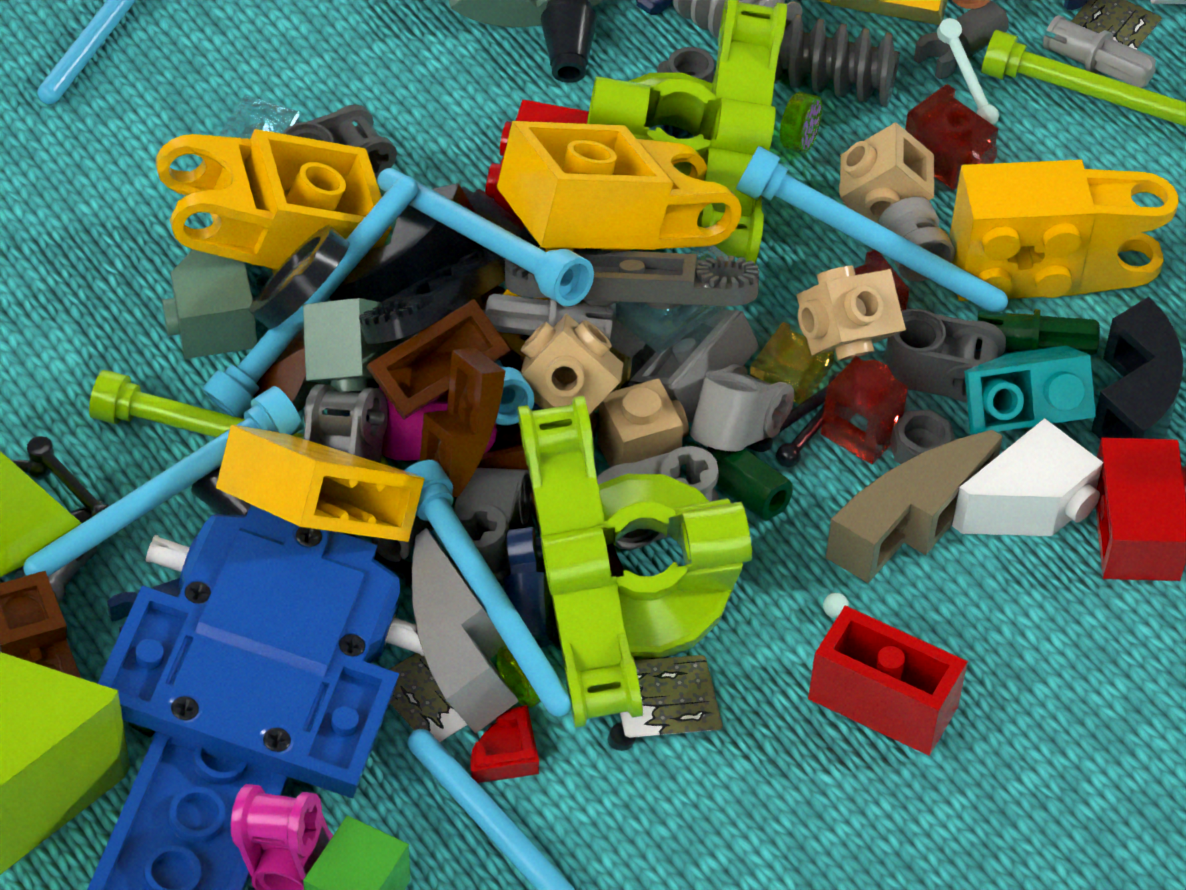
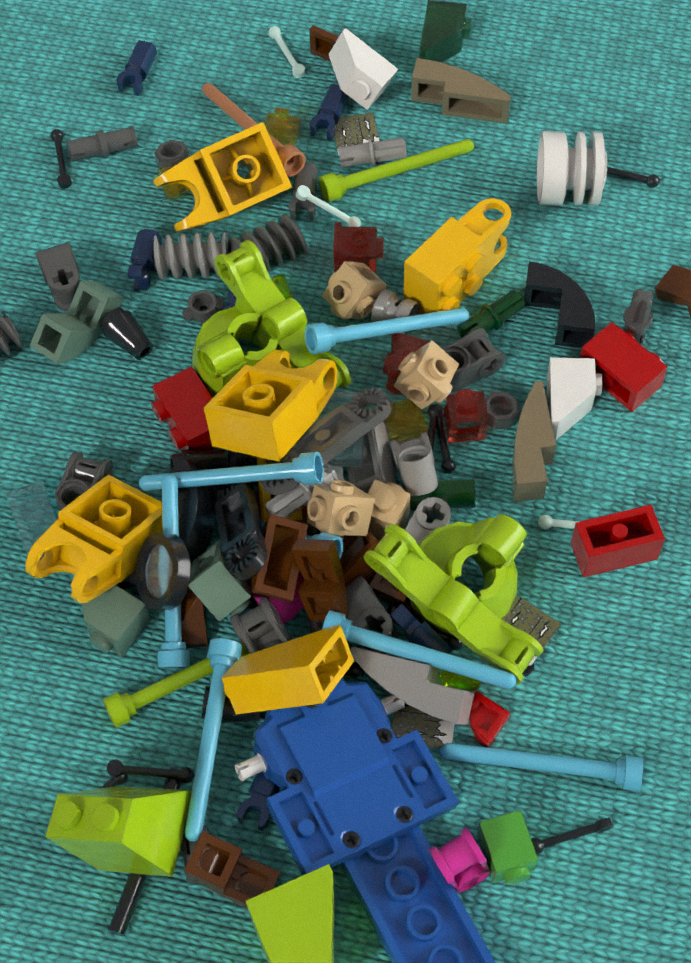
camera: 40 degrees left, 10 degrees up
(1028, 387) = (528, 345): teal slope -> none

